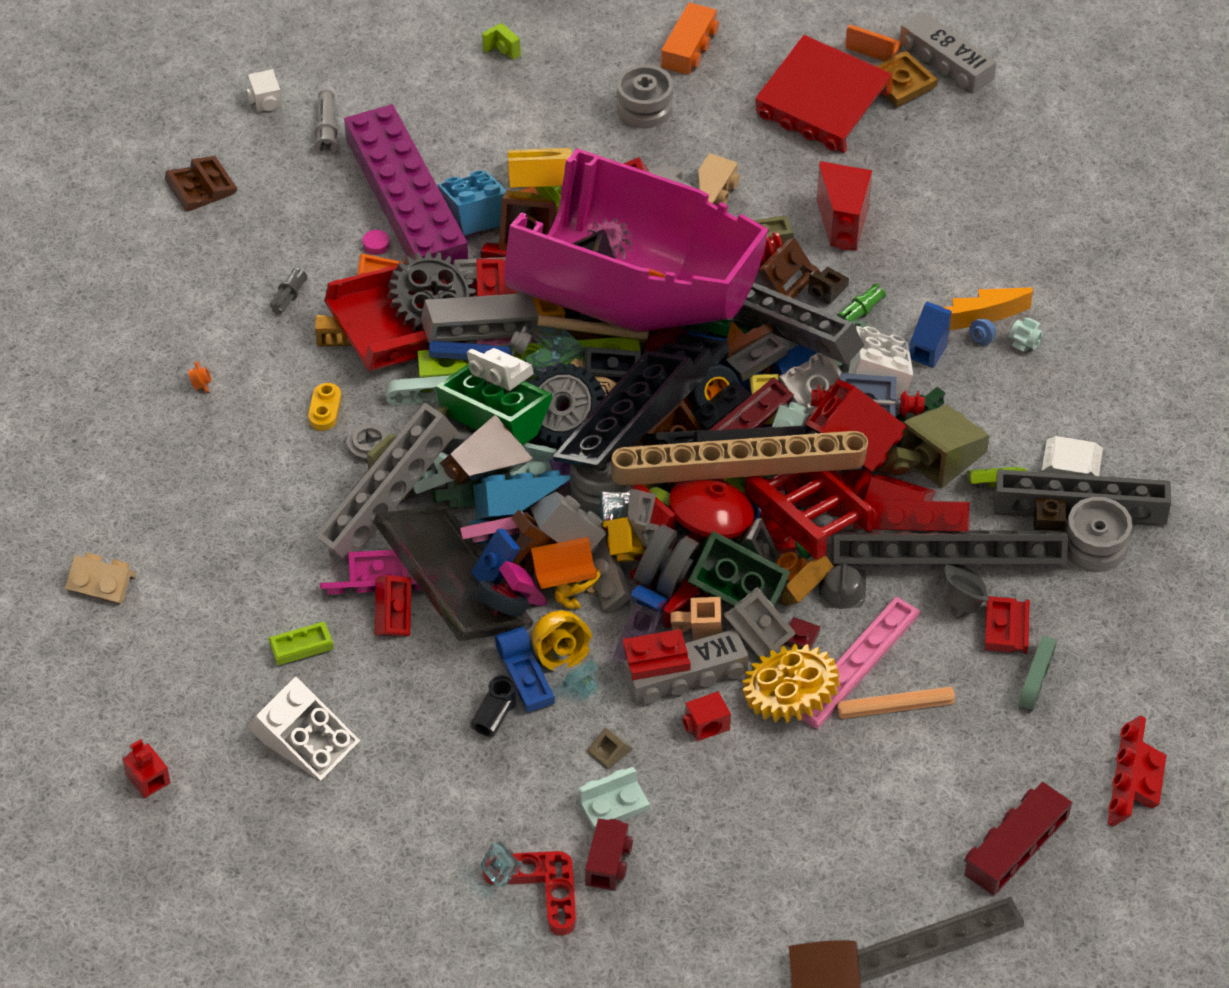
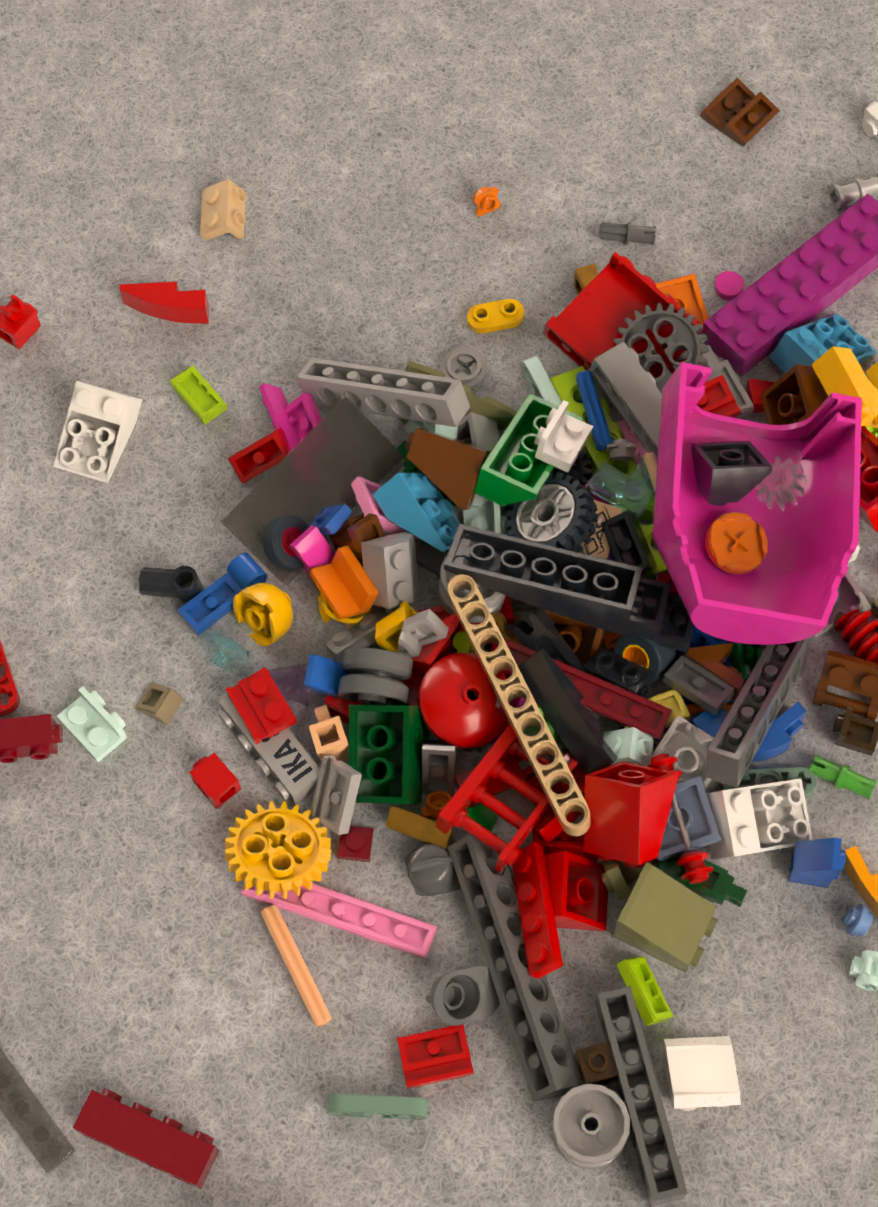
camera: 75 degrees right, 15 degrees up
(186, 641) = (167, 302): none -> red slope
(613, 505) = (433, 600): clear light blue tile -> none

